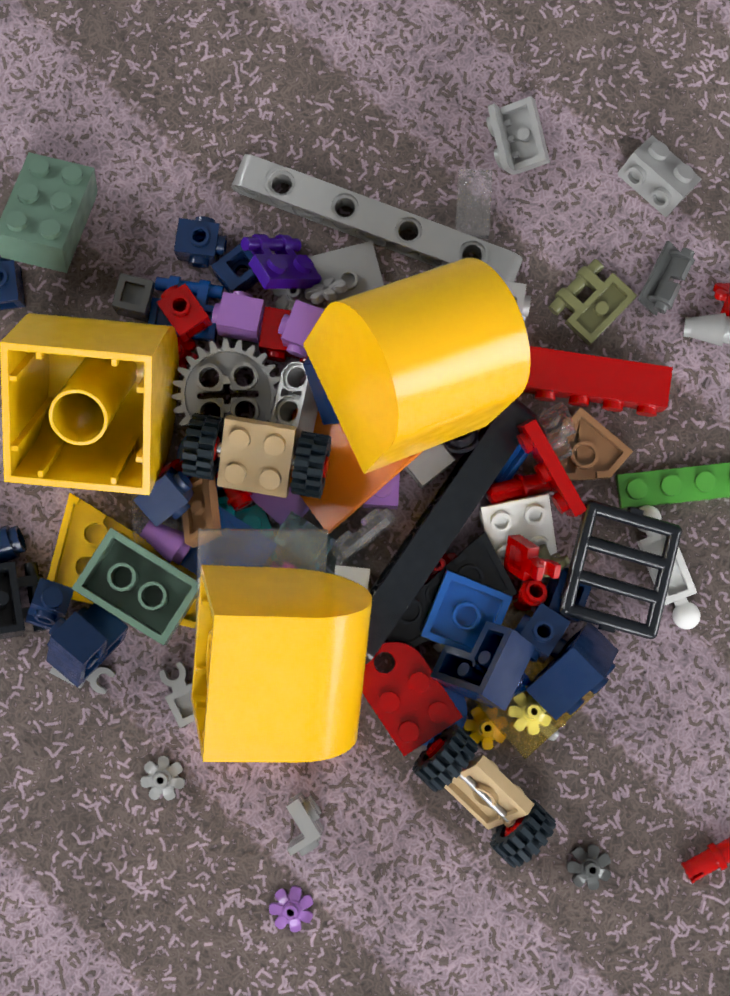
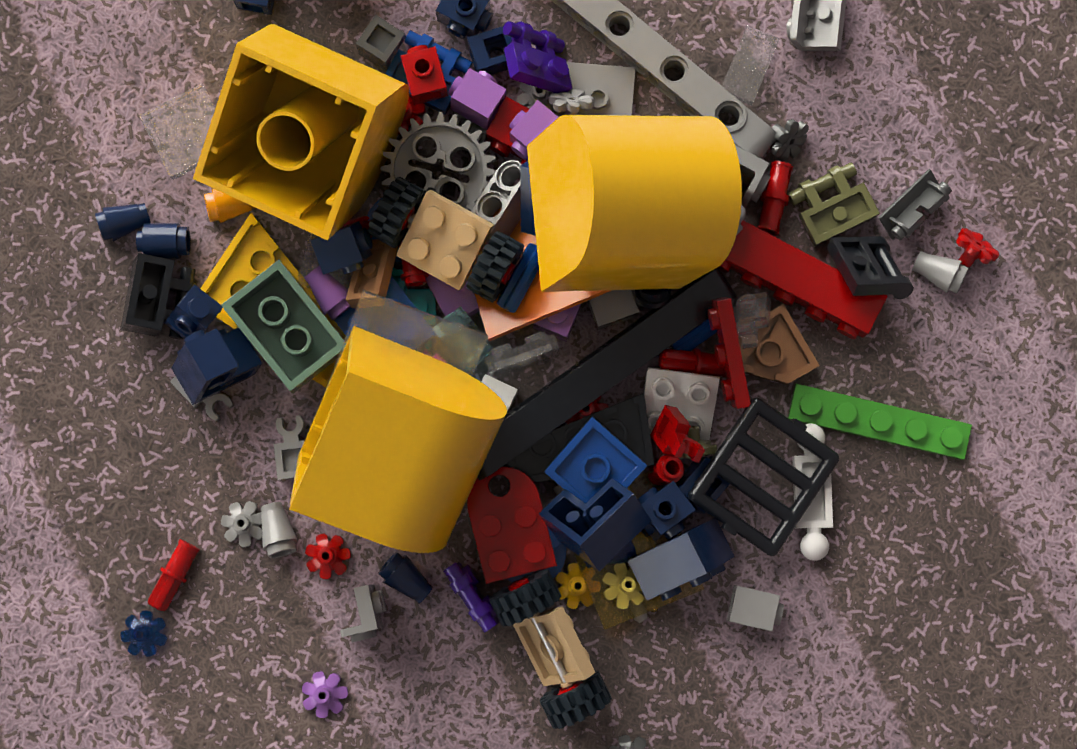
camera: 20 degrees right, 0 degrees up
(42, 497) = (224, 207): none -> light orange cone
(111, 909) = (150, 630): none -> clear blue plant
(114, 850) = (173, 575): none -> red axle
(195, 775) = (277, 532): none -> light grey cone
(254, 774) = (335, 559): none -> red plant
(328, 777) = (405, 577): none -> dark blue cone
(338, 467) = (520, 280): none -> blue axle
(384, 764) = (464, 583): none -> dark purple plate
(532, 257) = (789, 139): none -> dark grey plant
(539, 314) = (775, 197): none -> red pin
(646, 347) = (869, 266): none -> black plate
(653, 691) = (755, 608): none -> light grey brick
(659, 175) = (945, 101): light grey bracket -> none

